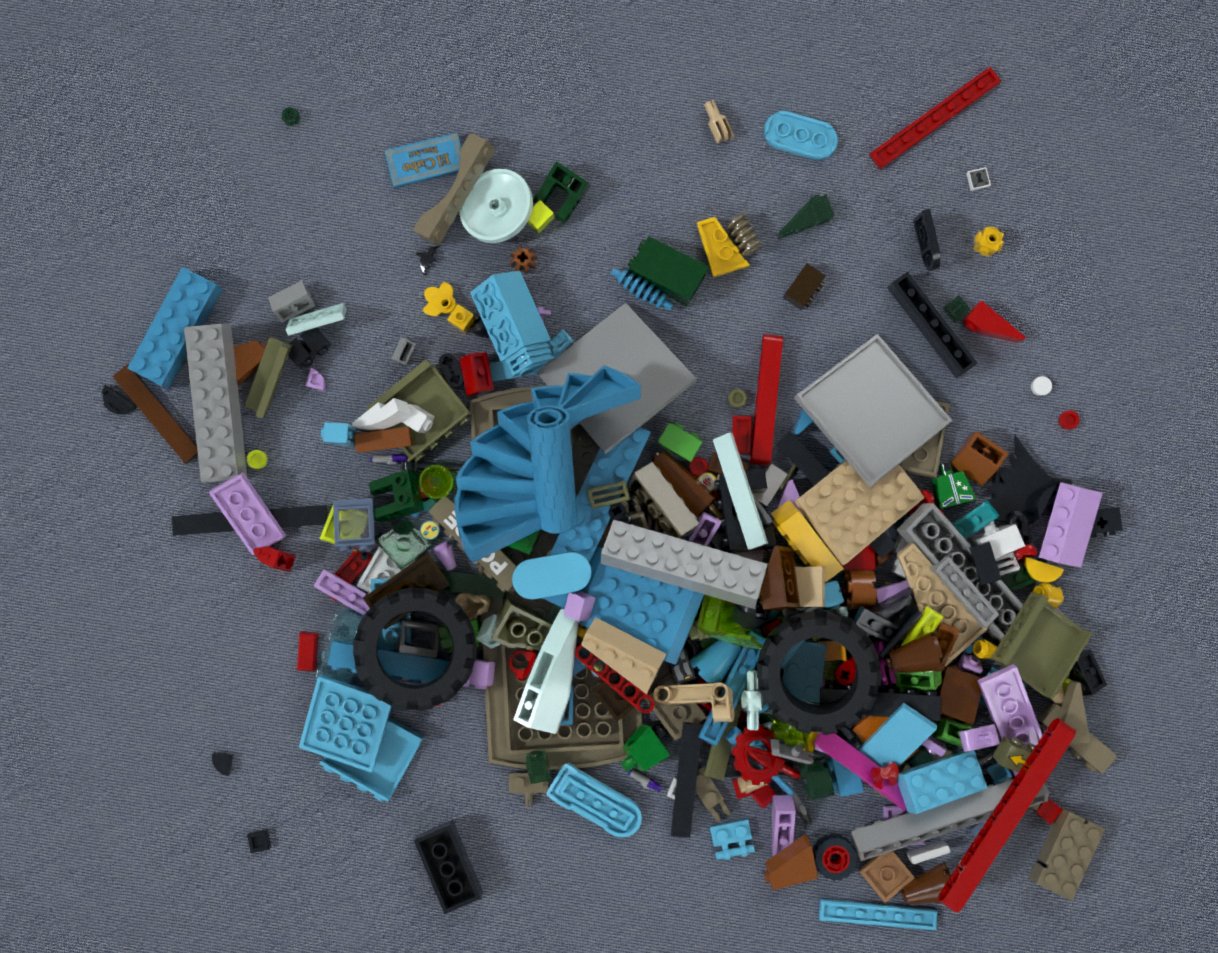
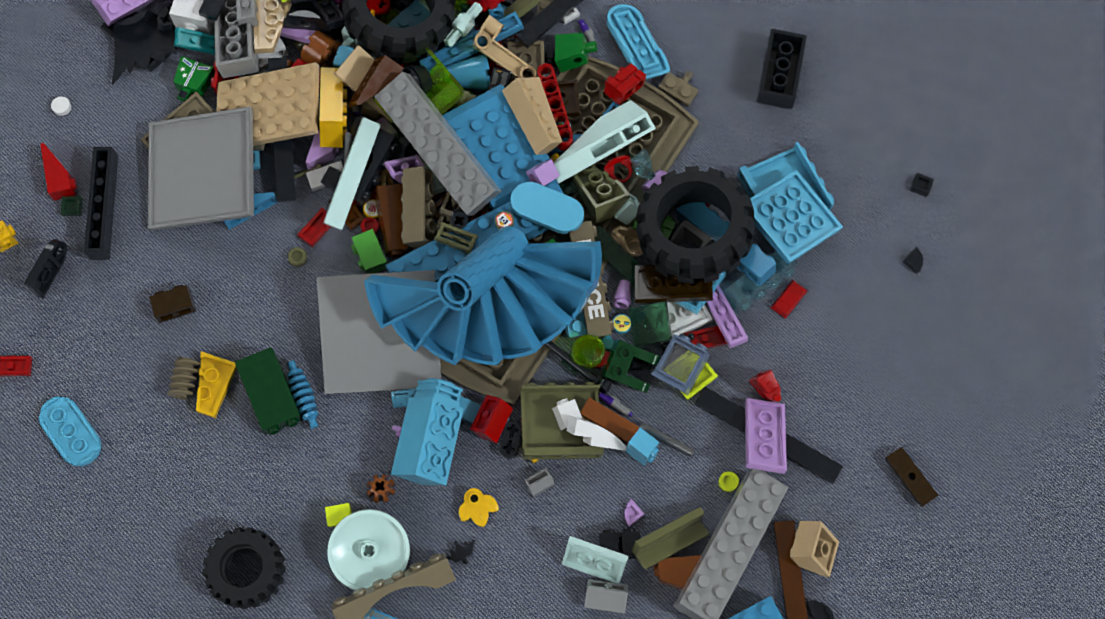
camera: 145 degrees left, 15 degrees down
(103, 560) = (919, 486): none -> dark brown tile
(153, 449) = (814, 547): none -> tan slope
(328, 459) = (667, 439): none -> flat silver bar
(461, 319) = (470, 474): yellow brick -> none
(479, 329) = (460, 457): black cone -> none
(507, 680) = (642, 165): none -> clear light blue bracket
(537, 766) = (662, 89): clear green brick -> none
(567, 181) = (290, 527): dark green brick -> none
(573, 747) = (624, 83): none -> red brick
(574, 103) = (220, 556): none -> black tyre
(578, 537) = (504, 219): none -> tile
(718, 123) = (127, 488): tan arm -> none
(766, 400) = (274, 239): red beam -> none
(810, 215) = (120, 357): clear green slope -> none
(978, 458) = (153, 84): dark orange slope -> none
(1068, 420) = (63, 69): red tile -> none

